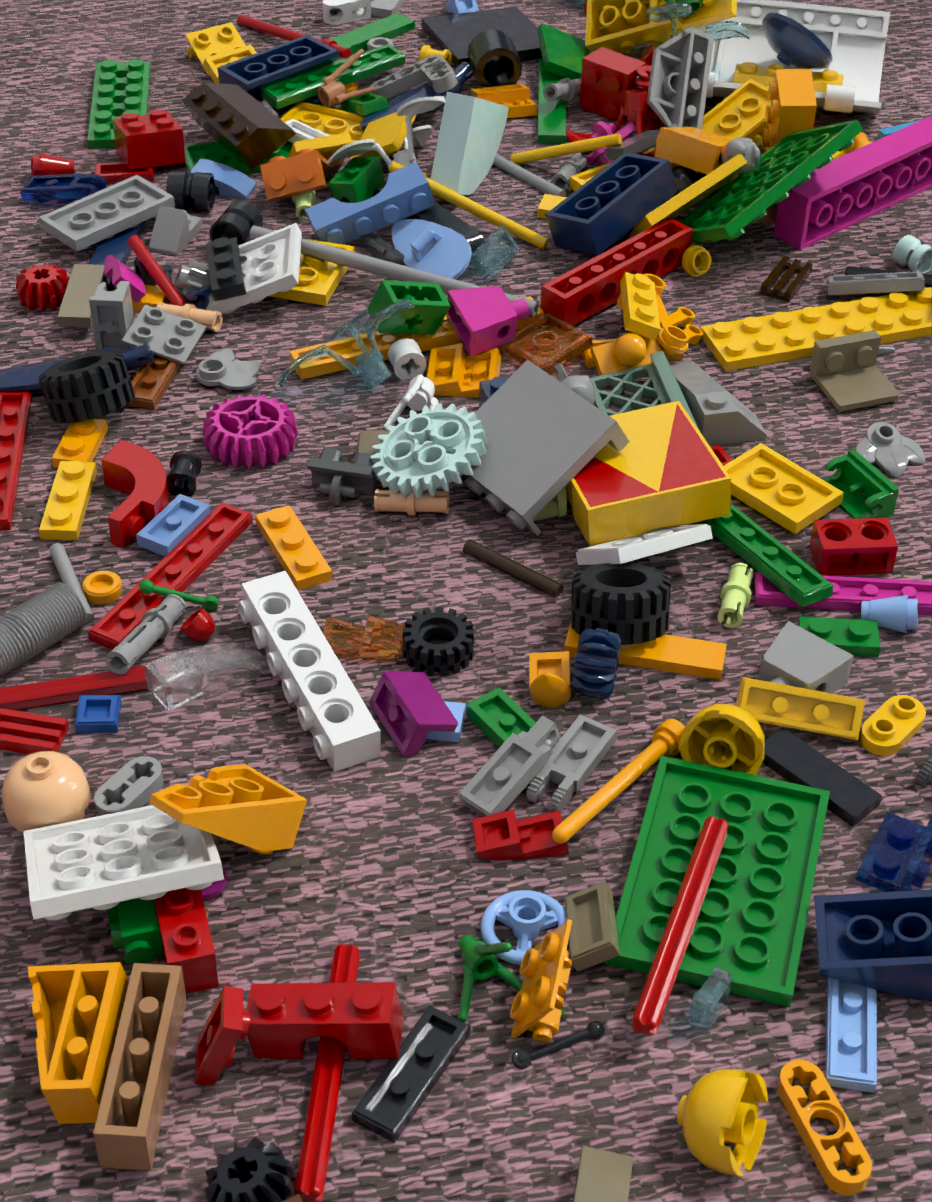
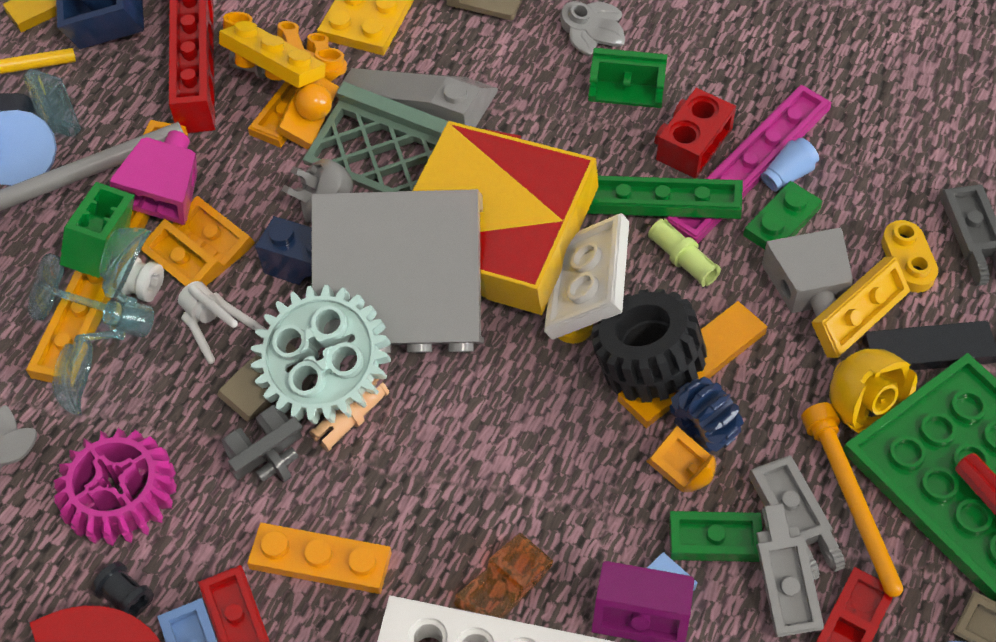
camera: 50 degrees left, 15 degrees up
(438, 656) = (570, 496): black tyre -> none
(513, 568) = (506, 392): dark brown bar -> none
(547, 343) = (229, 154): clear orange tile -> none
(781, 488) = (582, 124): yellow plate -> none

